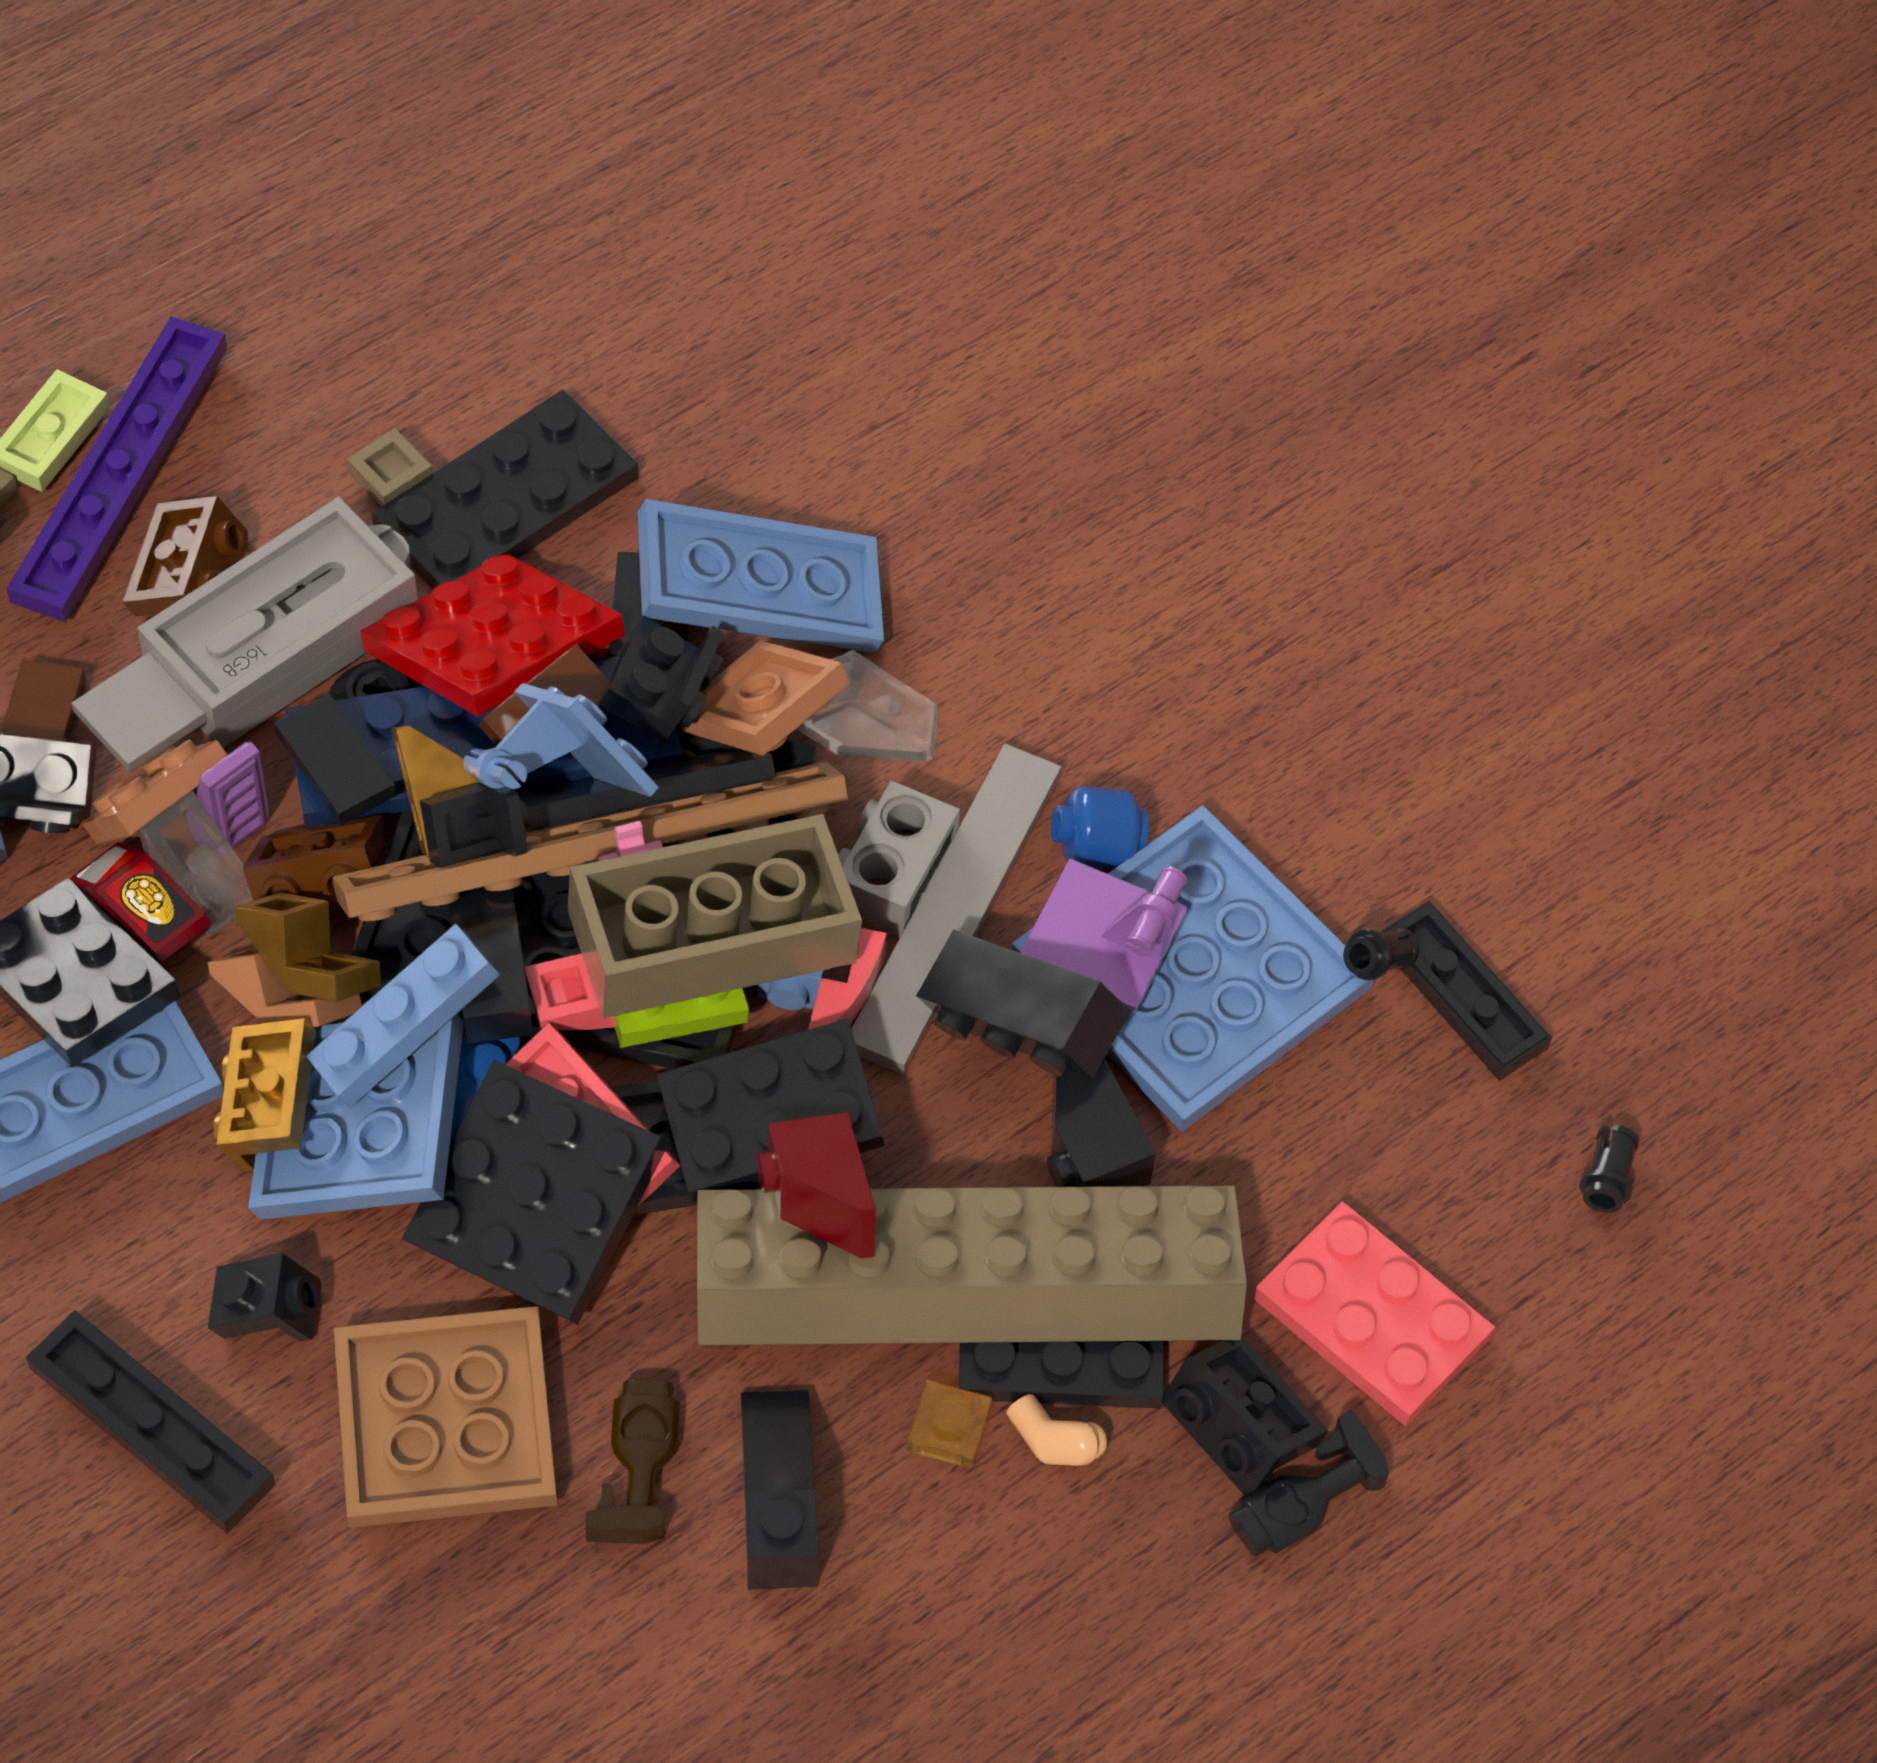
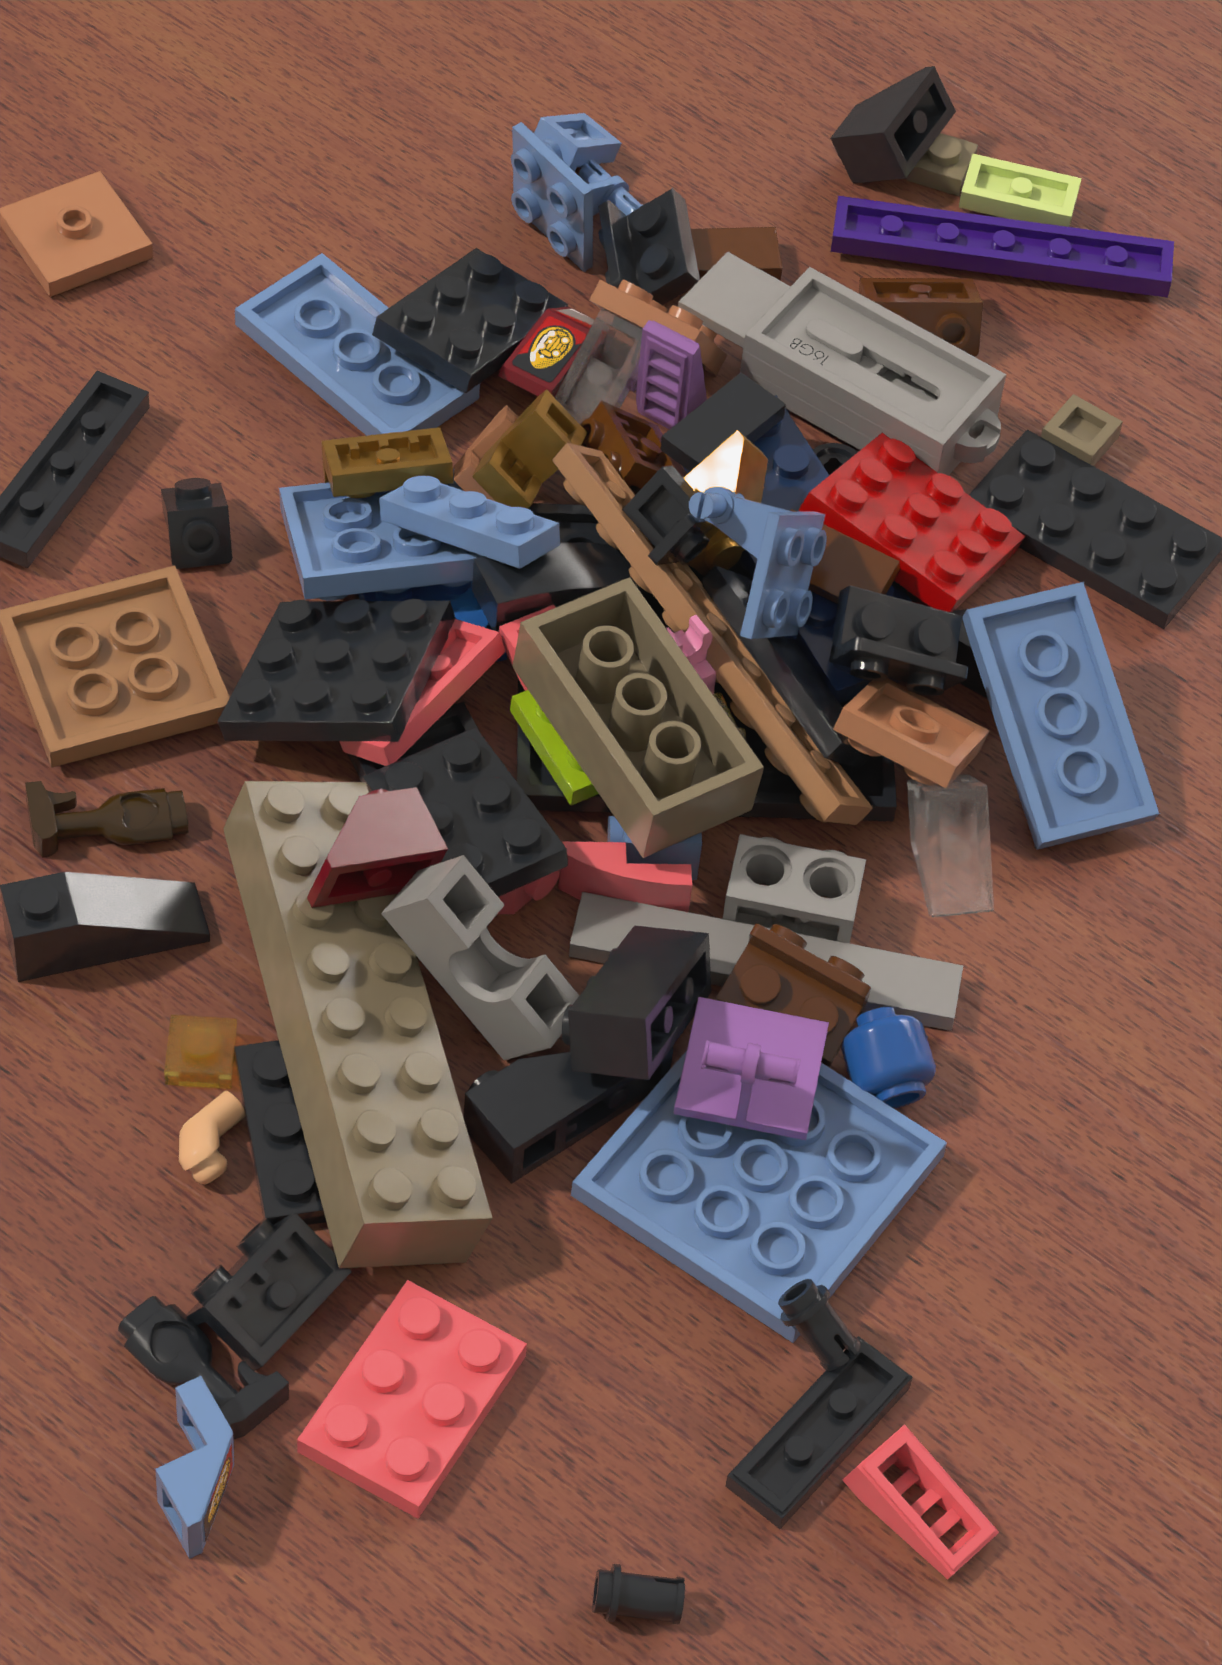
camera: 75 degrees right, 5 degrees down
(934, 1136) = (507, 997): none -> light grey arch
(1007, 894) = (787, 979): none -> reddish brown bracket
(1452, 1510) = (195, 1483): none -> medium blue slope
(1516, 950) = (922, 1469): none -> coral slope

